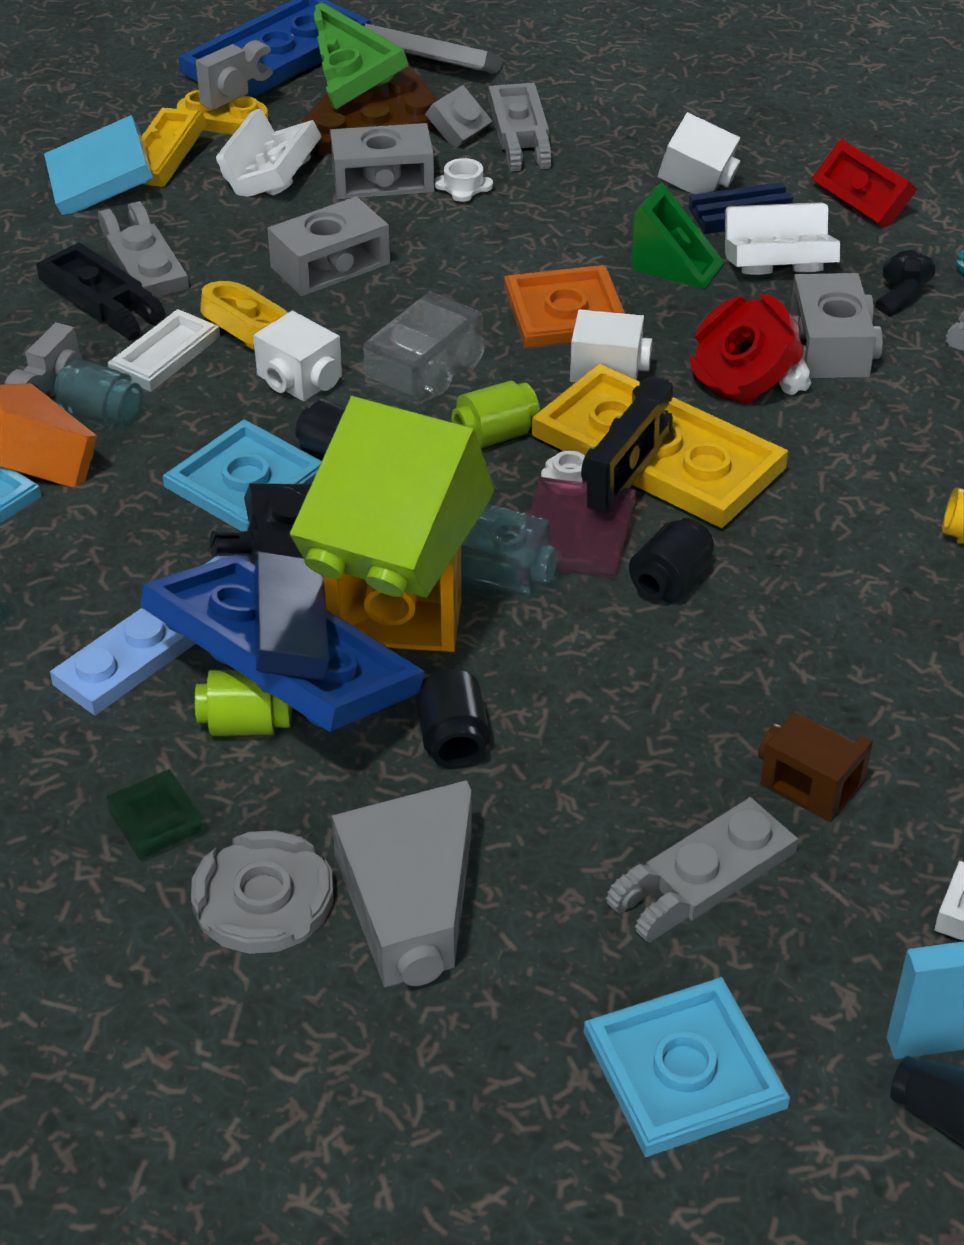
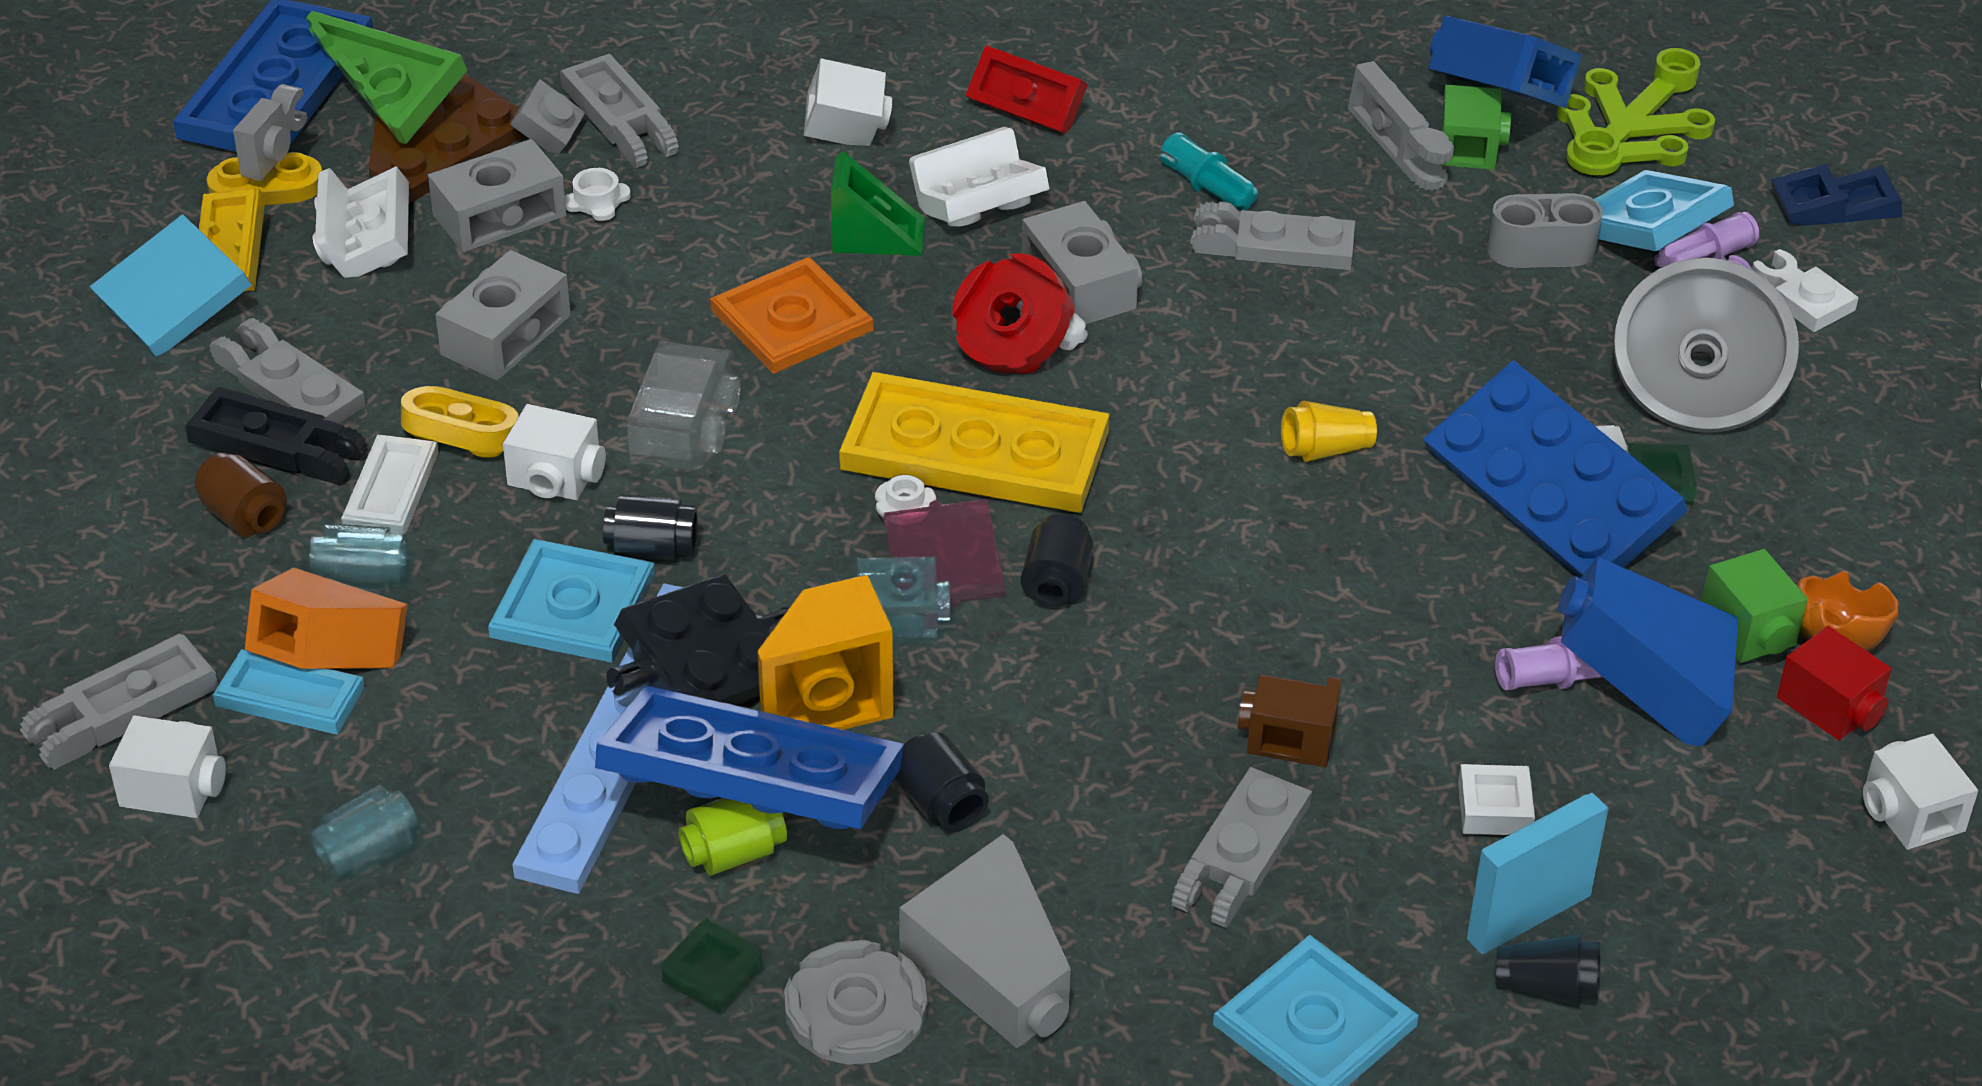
camera: 25 degrees left, 0 degrees up
(35, 313) = (240, 494): none -> reddish brown brick
(47, 357) = (286, 534): light grey plate -> none
(289, 618) = (758, 729): dark blue tile -> none
(392, 498) = (819, 584): lime slope -> none
(441, 50) = (472, 37): light grey tile -> none
(497, 412) = (796, 457): lime brick -> none
(611, 341) = (868, 345): white brick -> none
(628, 445) = (964, 453): black hinge -> none
(711, 206) = (889, 154): dark blue tile -> none
(907, 273) = (1122, 183): black plate -> none

